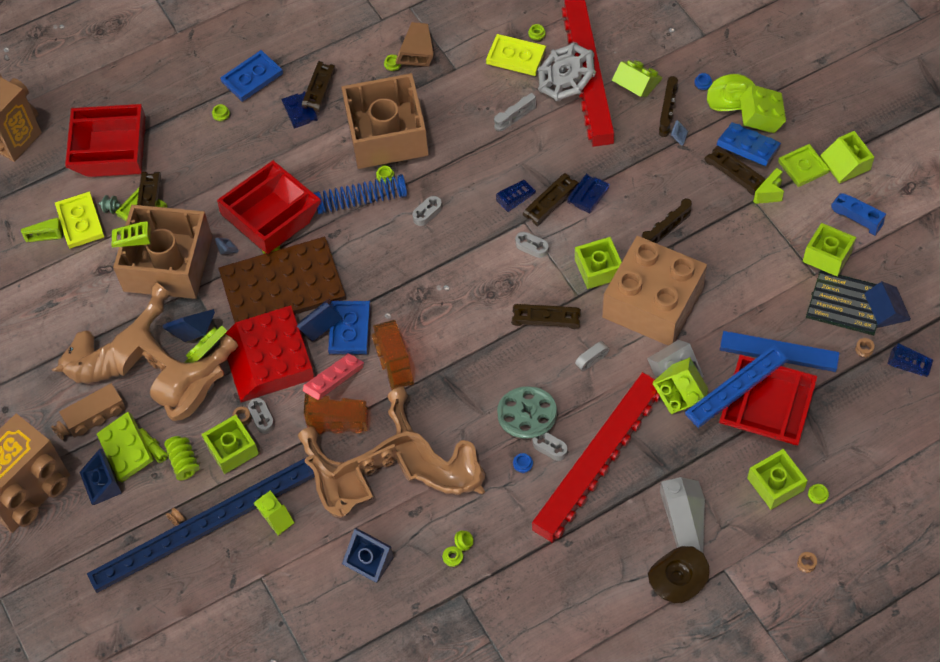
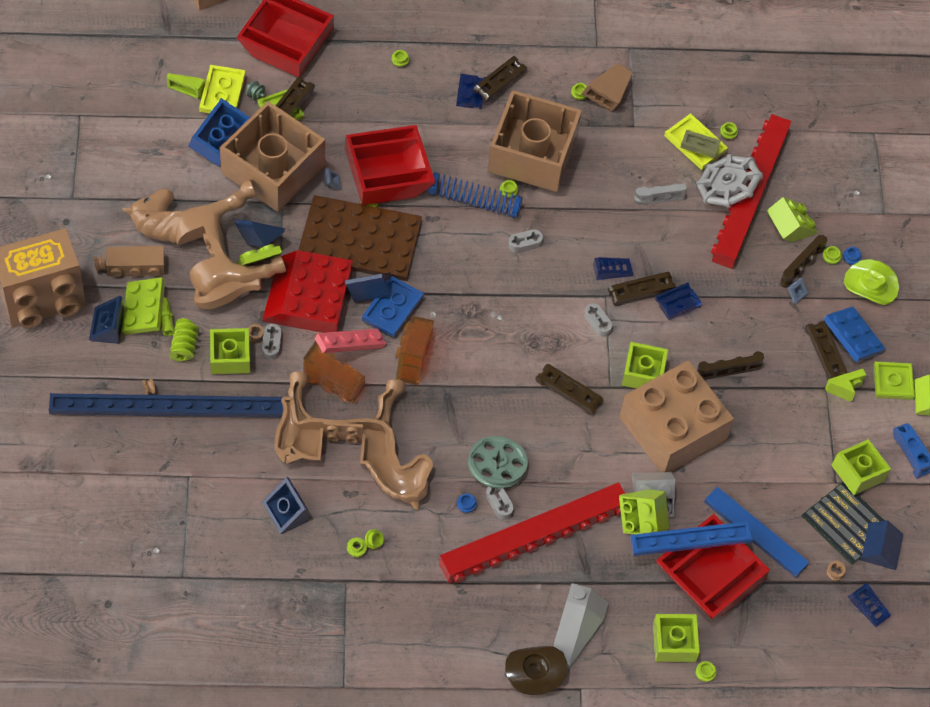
camera: 20 degrees right, 0 degrees up
(98, 257) = (216, 130): none -> blue brick
(142, 239) = (259, 136): lime slope -> none
(251, 75) = (447, 38): blue plate -> none
(274, 512) = (231, 428): lime slope -> none
(523, 53) = (700, 144): none -> olive plate
(592, 356) = (586, 445): light grey beam -> none
(687, 89) = (832, 255): none -> lime plate
(762, 109) = (887, 308): lime brick -> none

